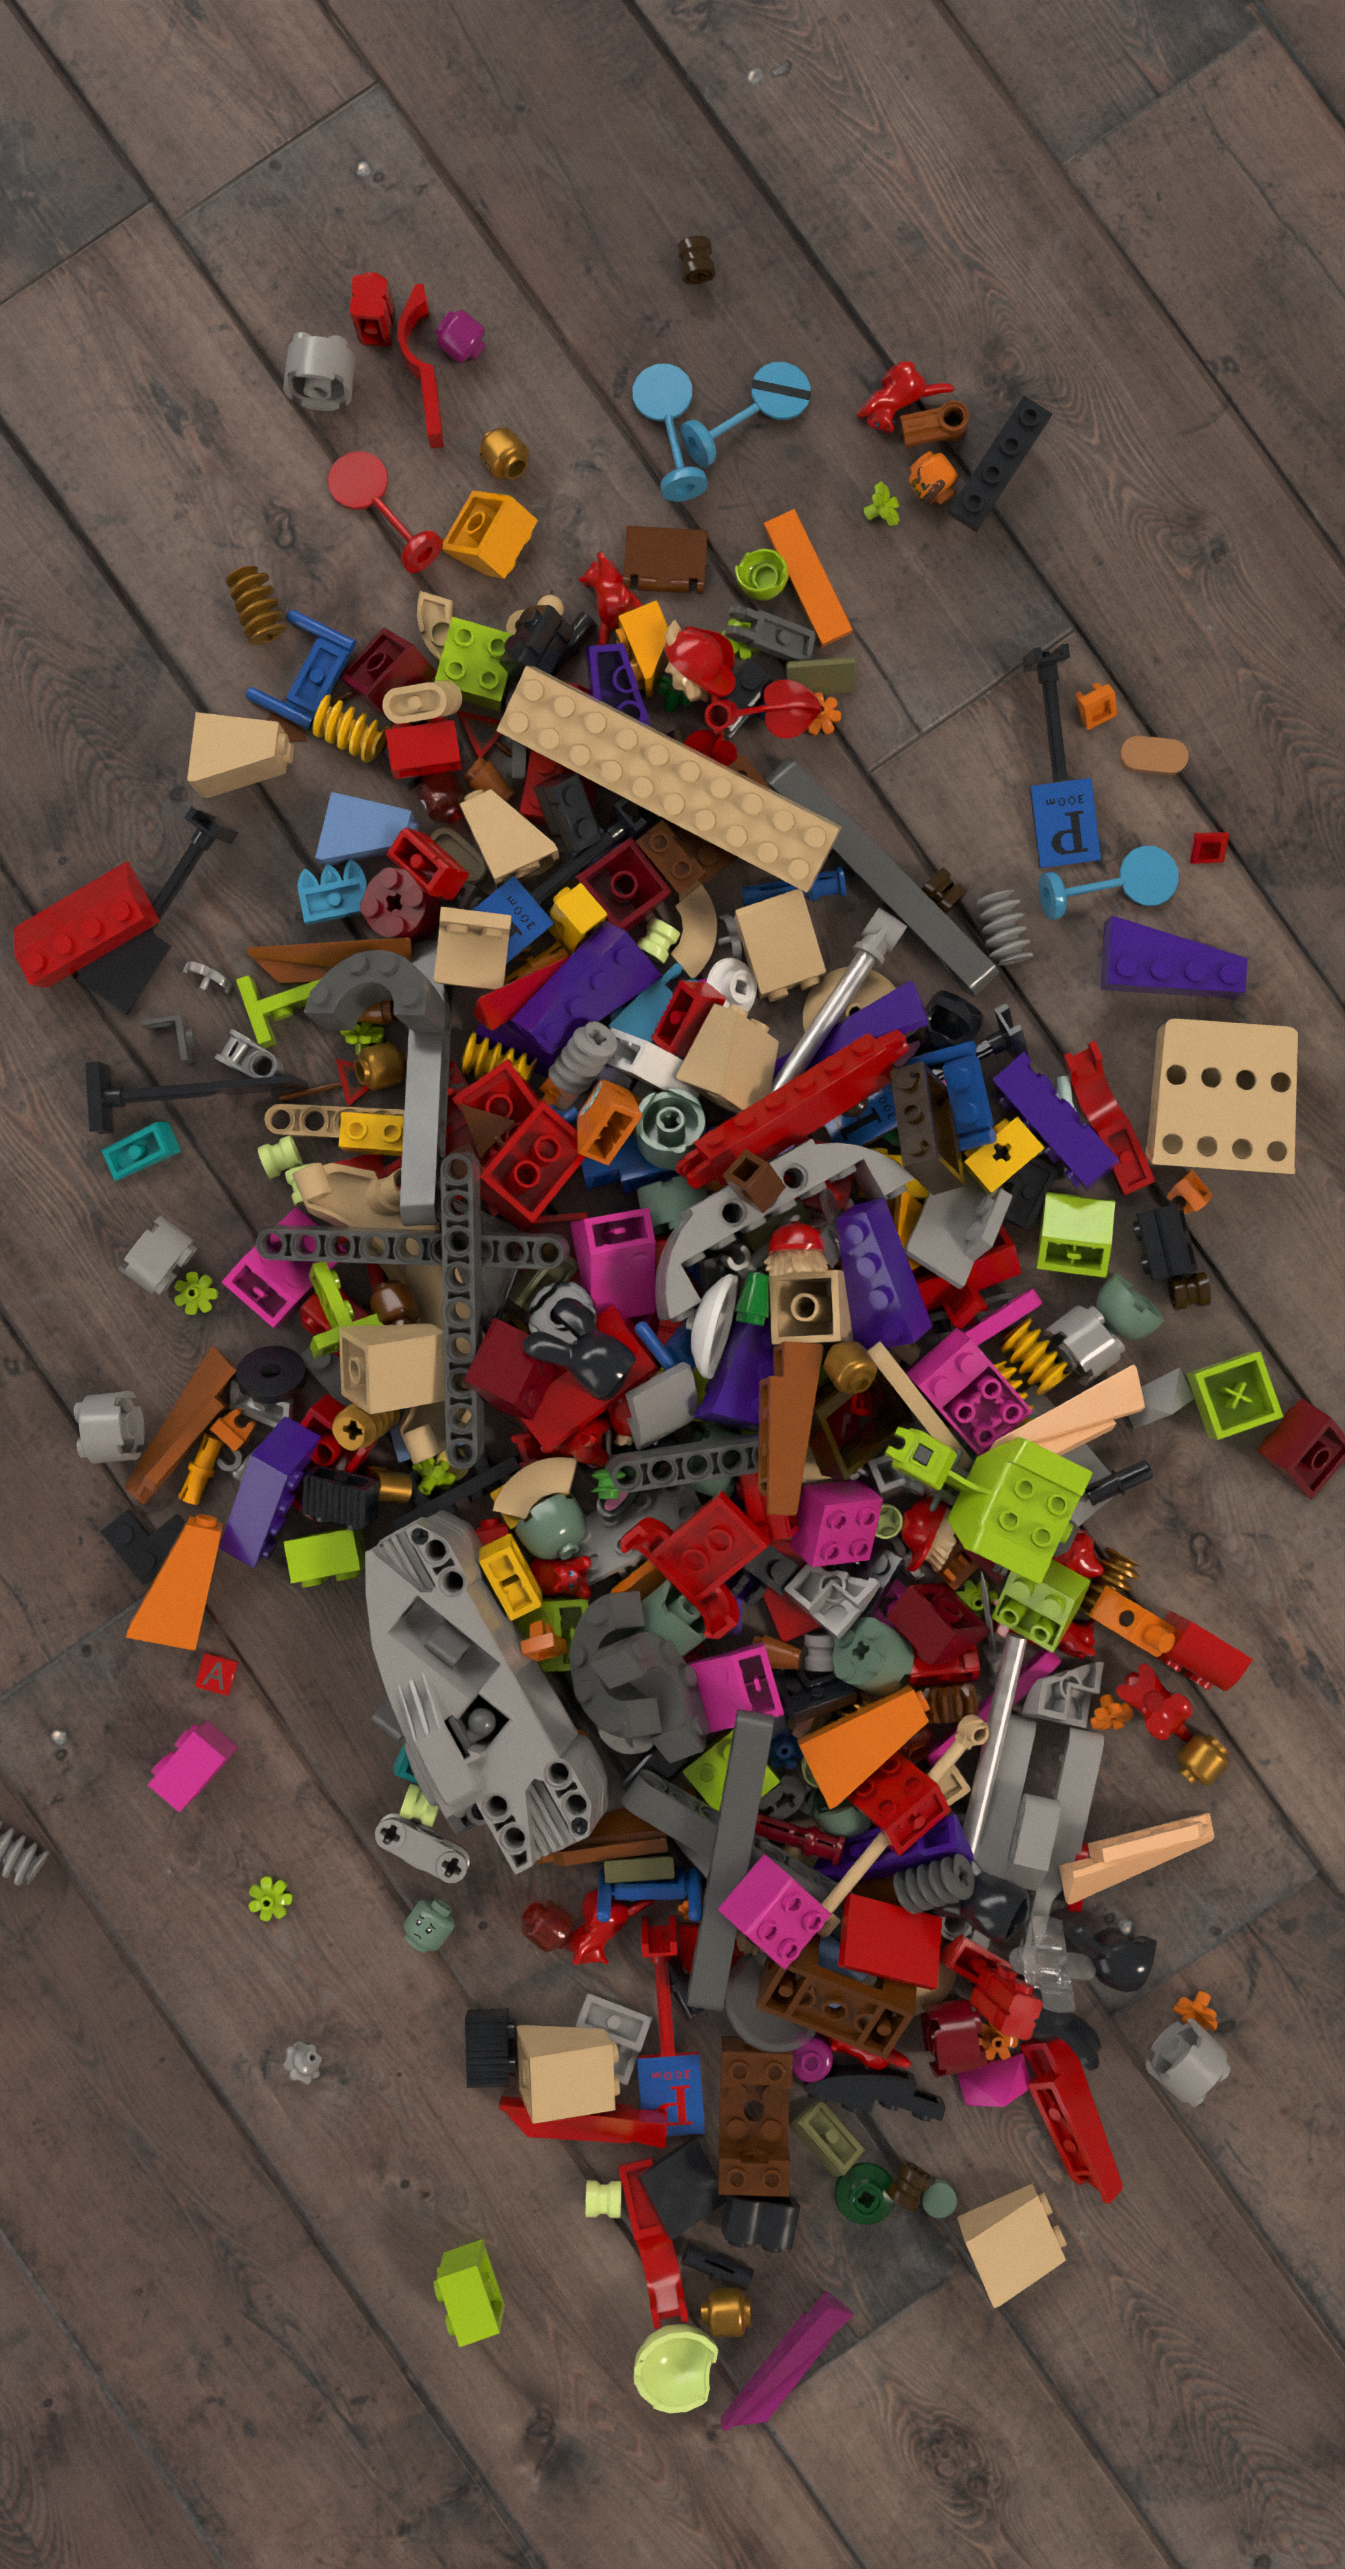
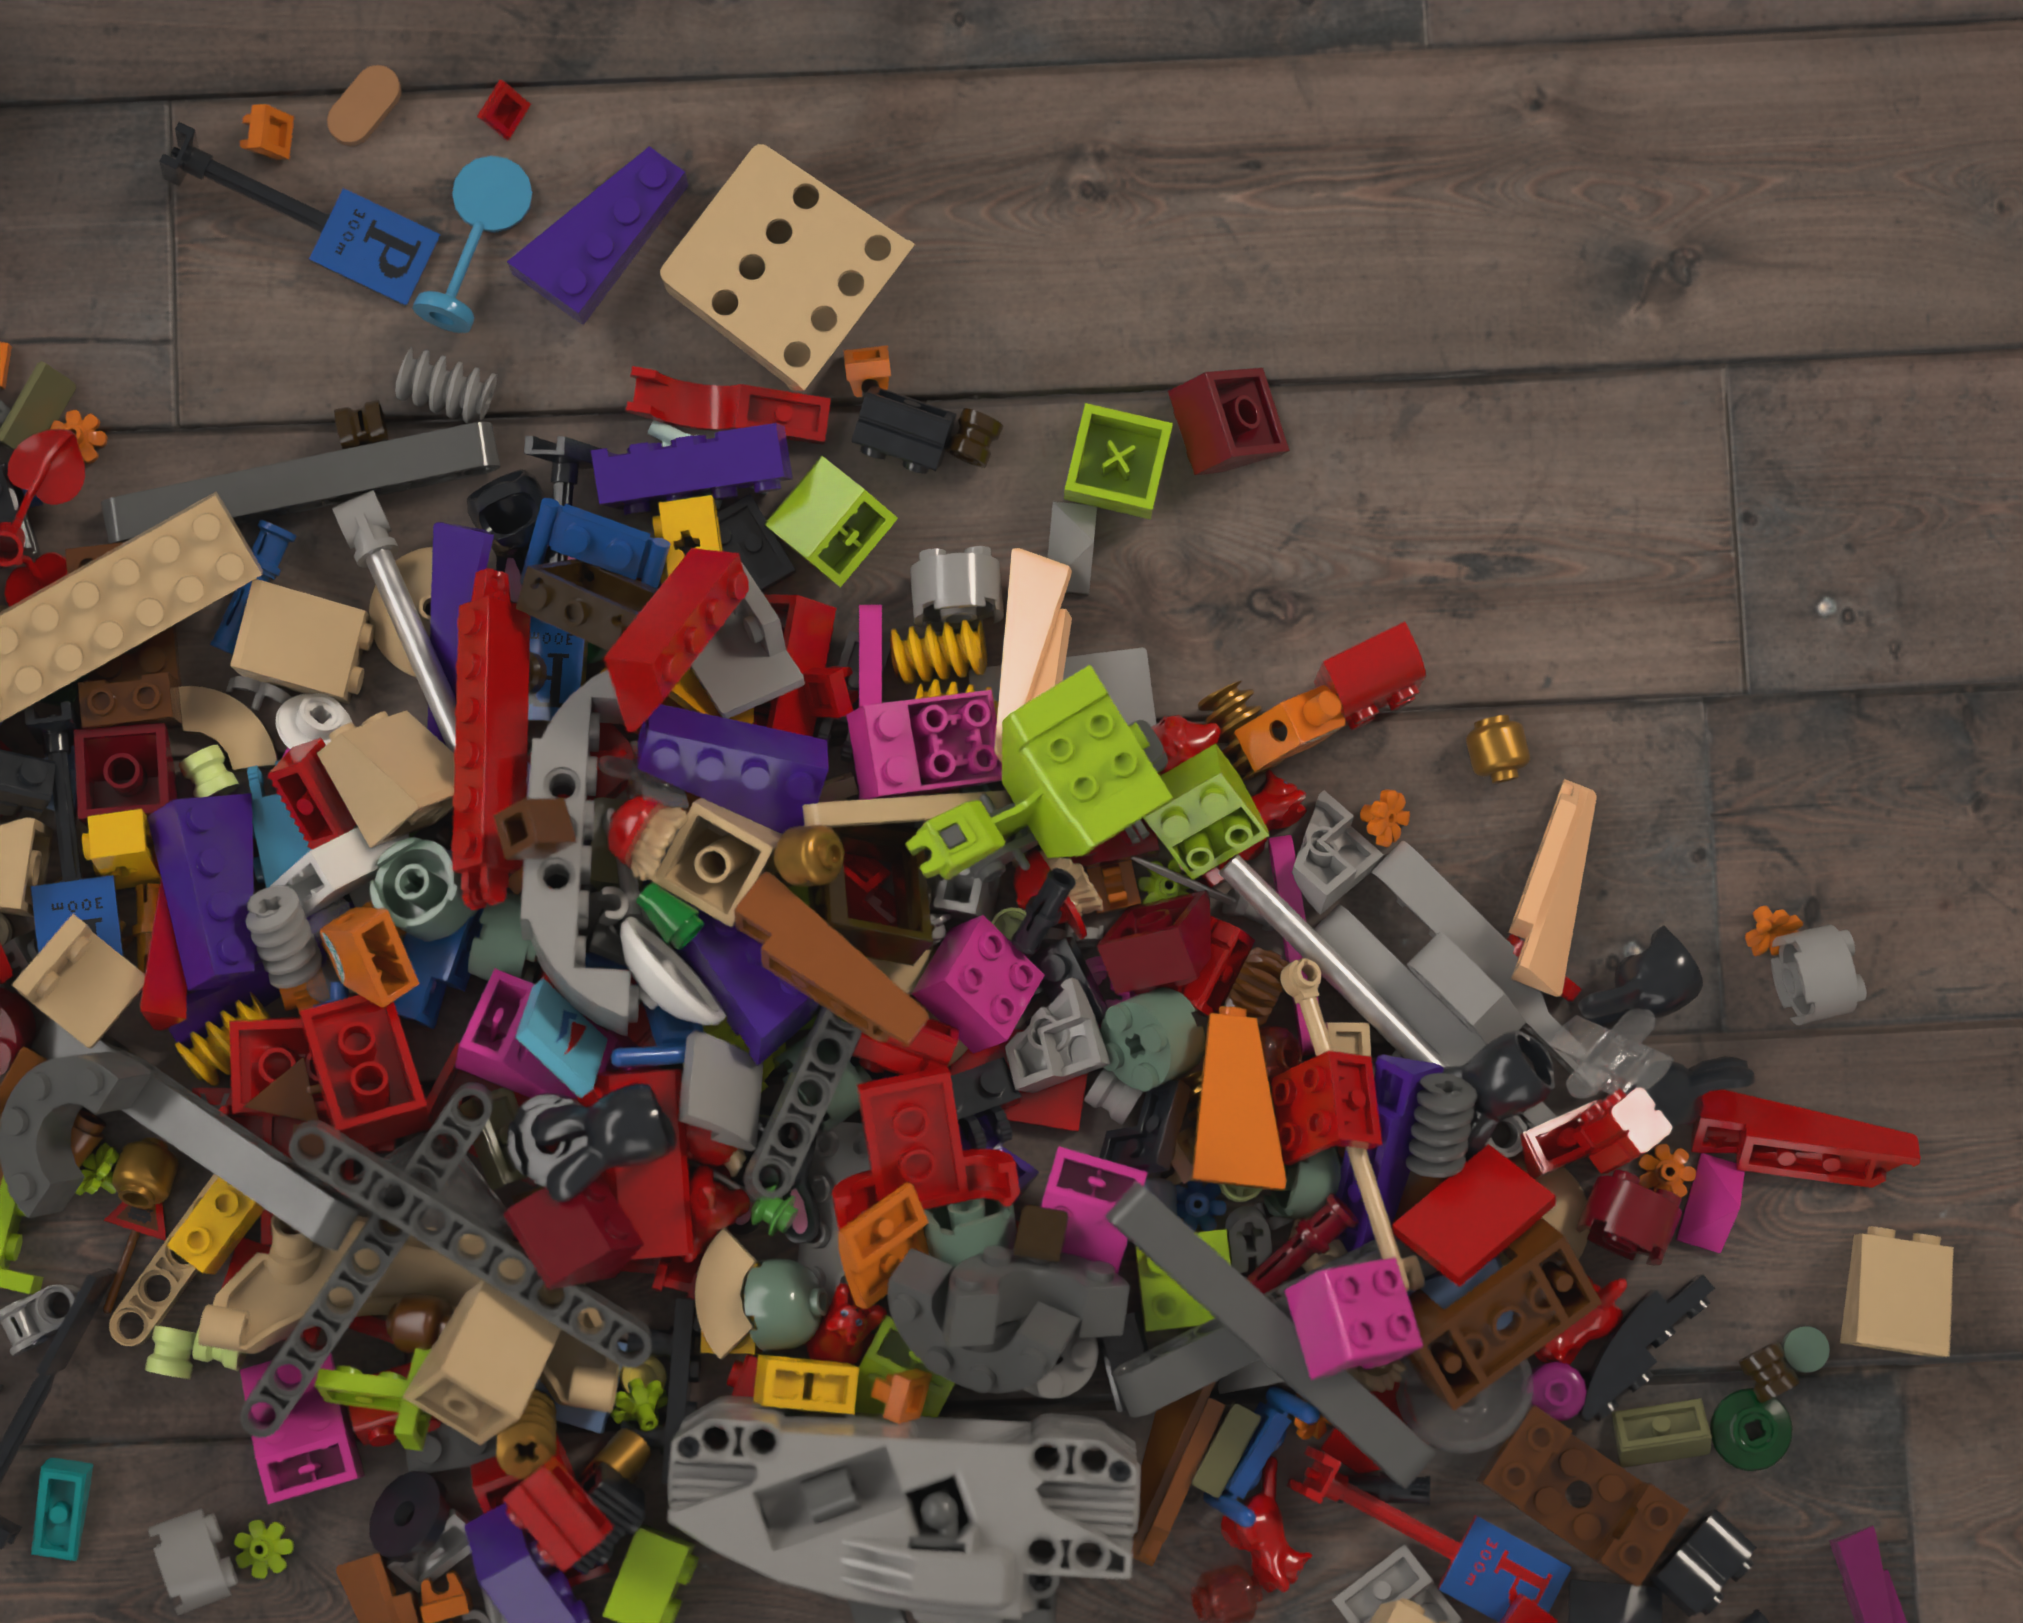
camera: 60 degrees left, 5 degrees down
(325, 1476) = (556, 1514): none -> red brick
(629, 1570) = (878, 1243): none -> orange slope
(630, 1281) = (561, 1038): none -> medium azure tile
(701, 1670) = (1041, 1233): none -> dark brown slope
(780, 1654) = (1089, 1138): dark orange cone -> none
(910, 1537) = (1043, 911): none -> black pin
(941, 1186) = (674, 630): none -> red slope
(1118, 1482) = (1133, 647): black axle -> none
(1127, 1311) = (950, 519): sand green cylinder -> none
(1161, 1709) = (1410, 758): red animal -> none

